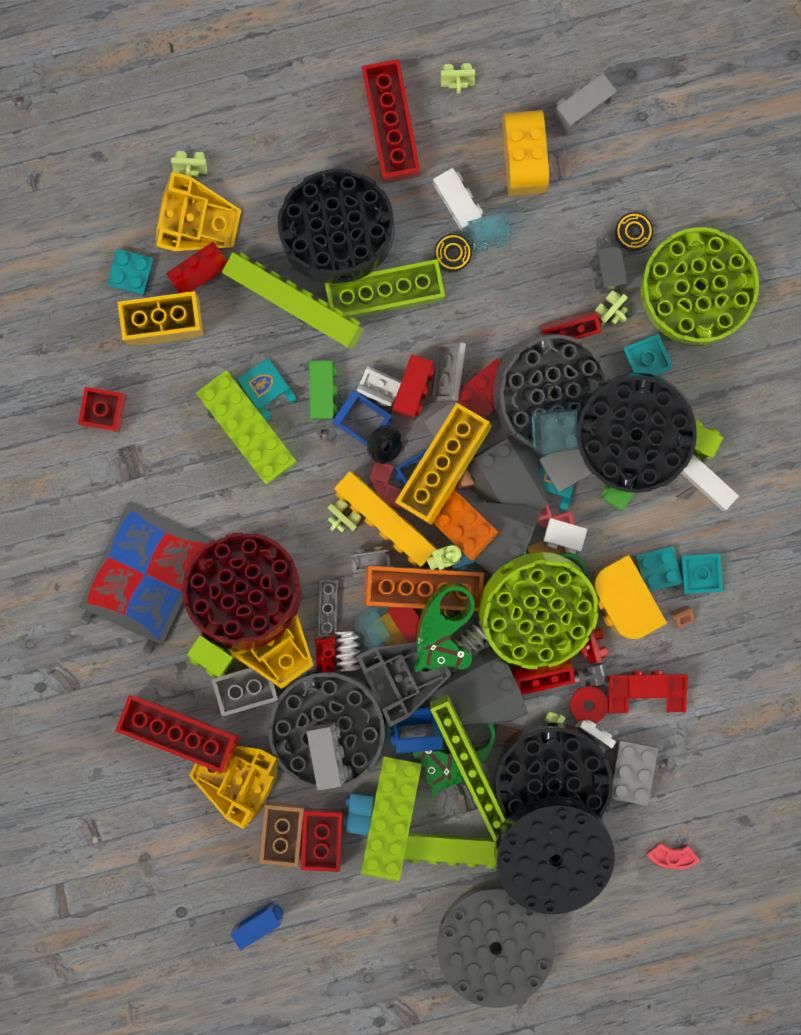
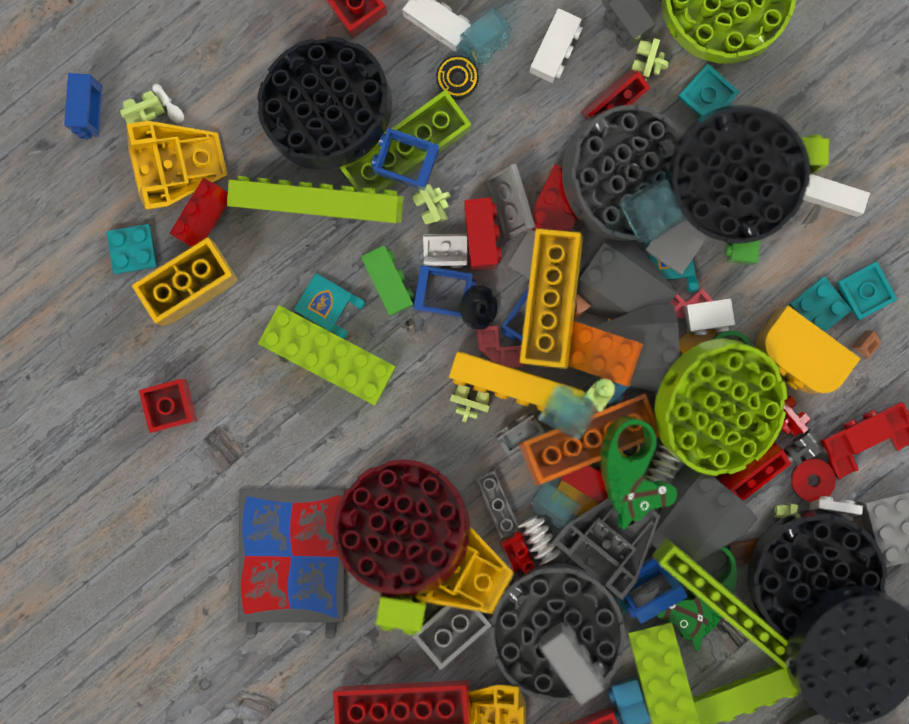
camera: 25 degrees left, 0 degrees up
(144, 140) = (83, 105): none -> blue window
(213, 178) = (173, 111): none -> white piece
(358, 291) = (385, 143): none -> blue window
(389, 344) = (435, 201): none -> yellowish green hips
(413, 557) = (568, 412): none -> clear light blue brick
(543, 264) = (556, 46): none -> white brick

